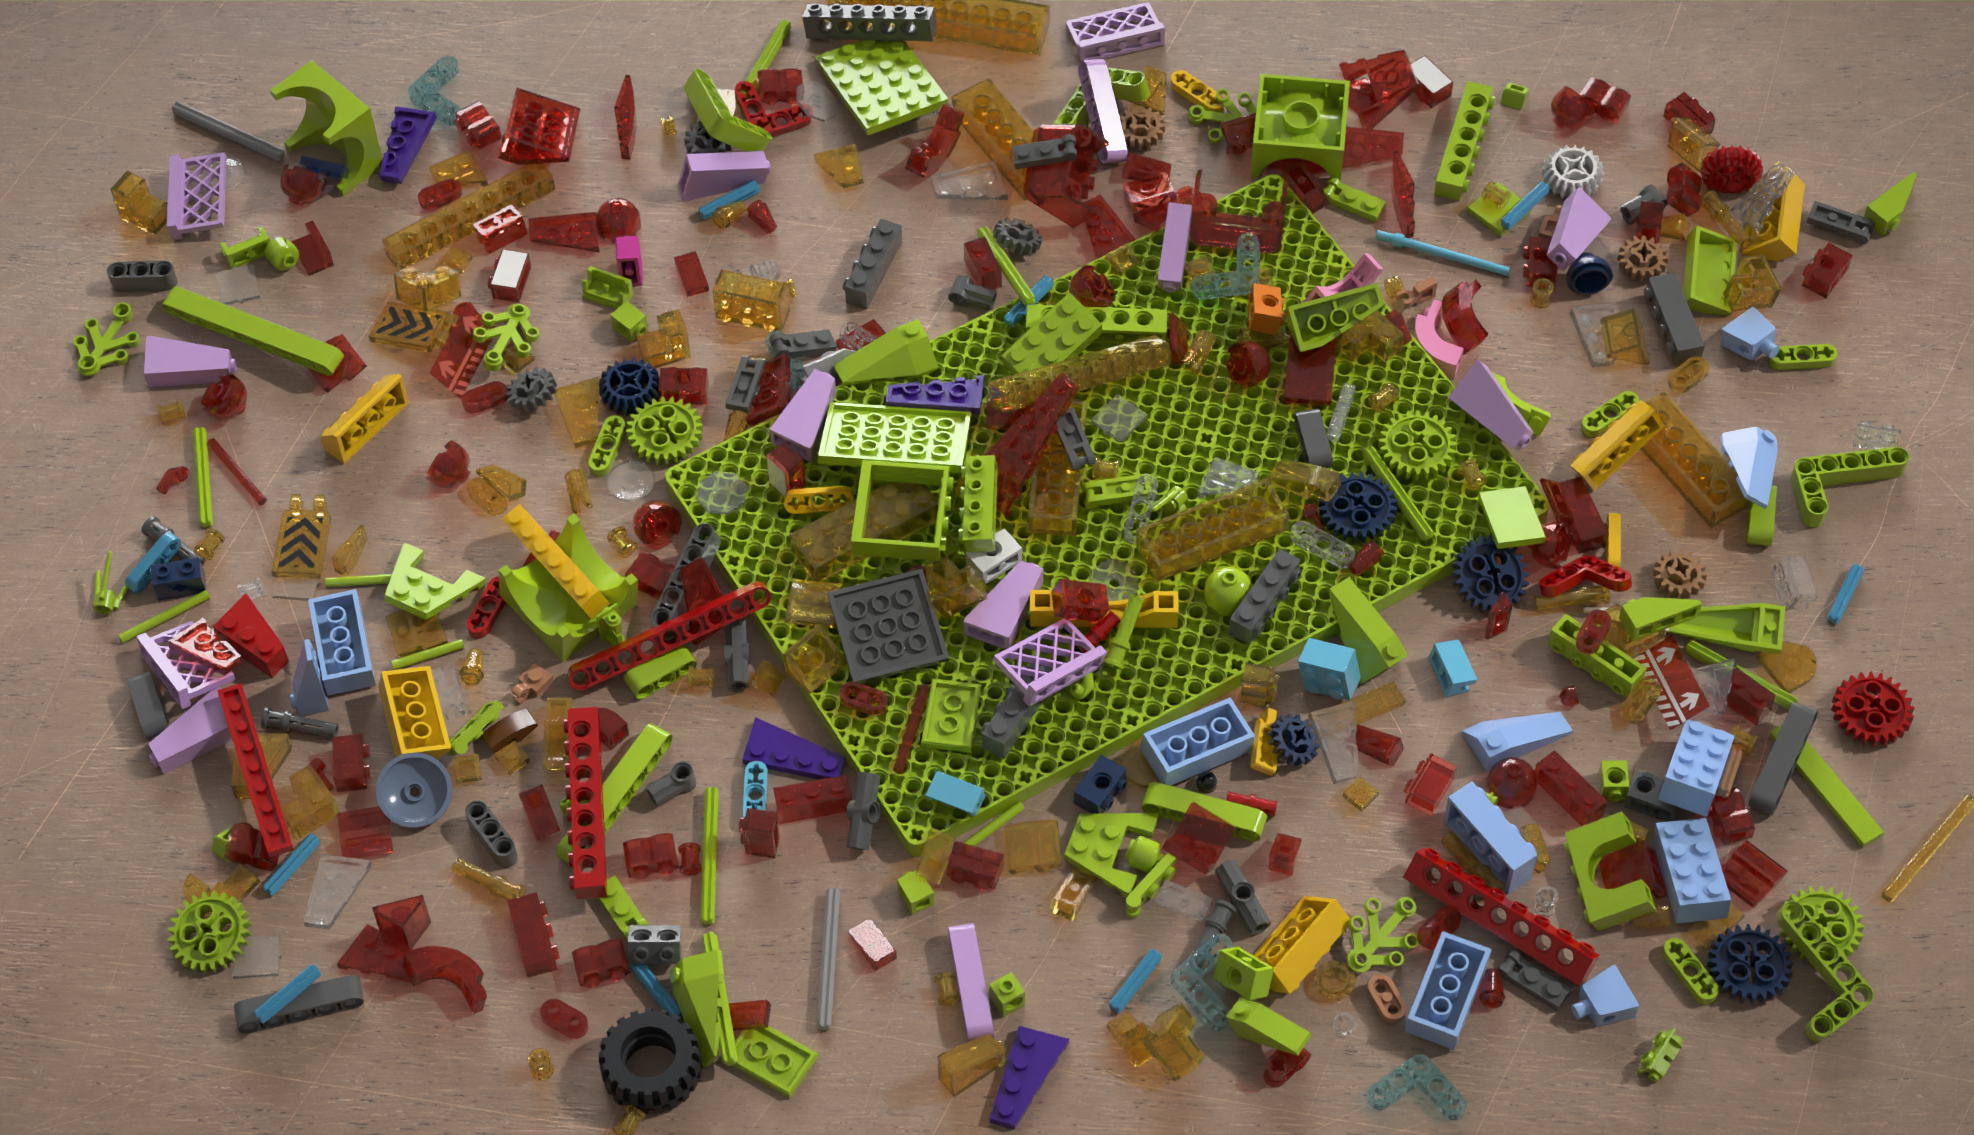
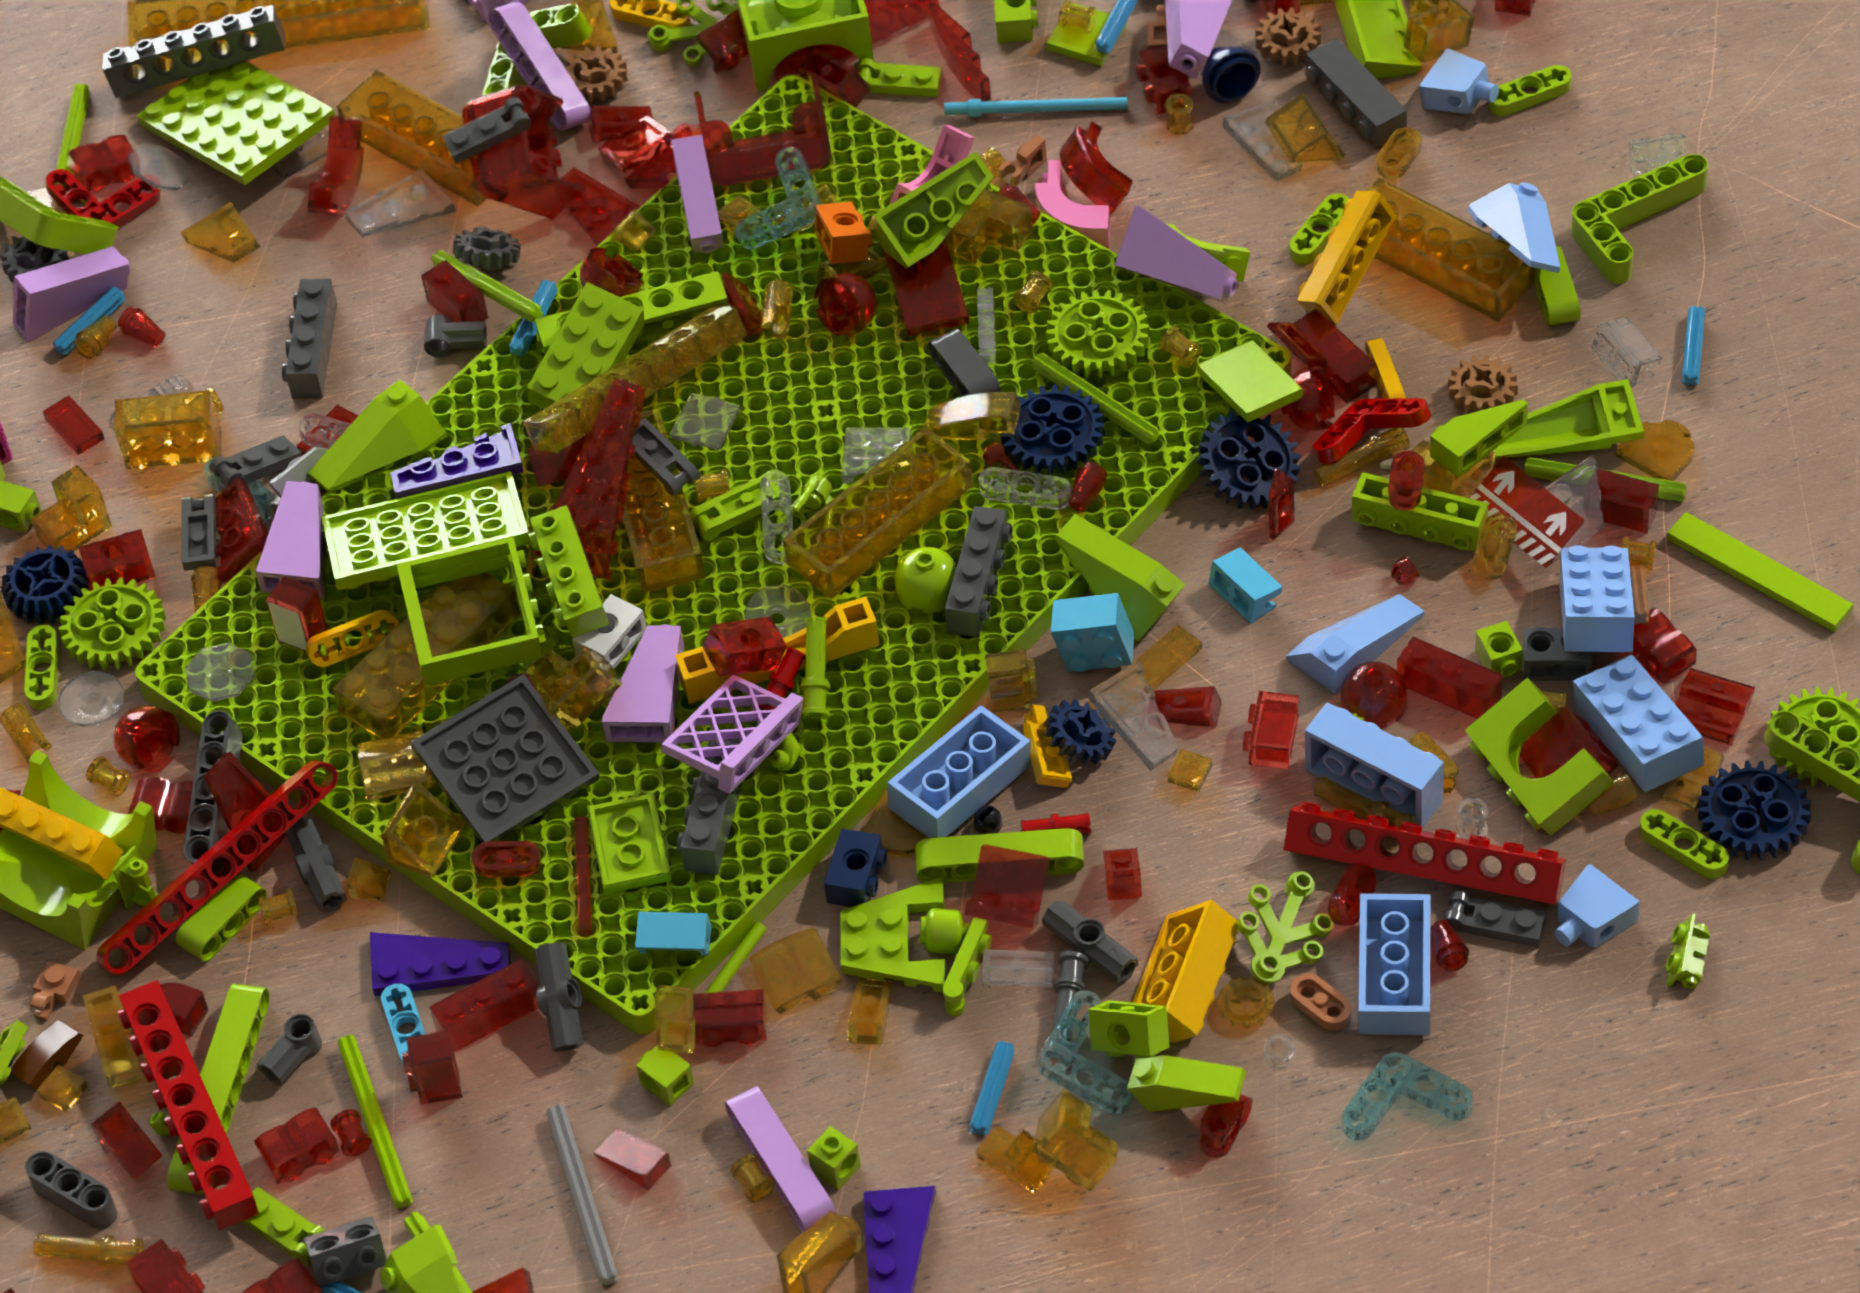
camera: 15 degrees left, 5 degrees down
(1783, 758) = (1697, 557): dark grey beam -> none
(1872, 709) = (1781, 466): red gear -> none

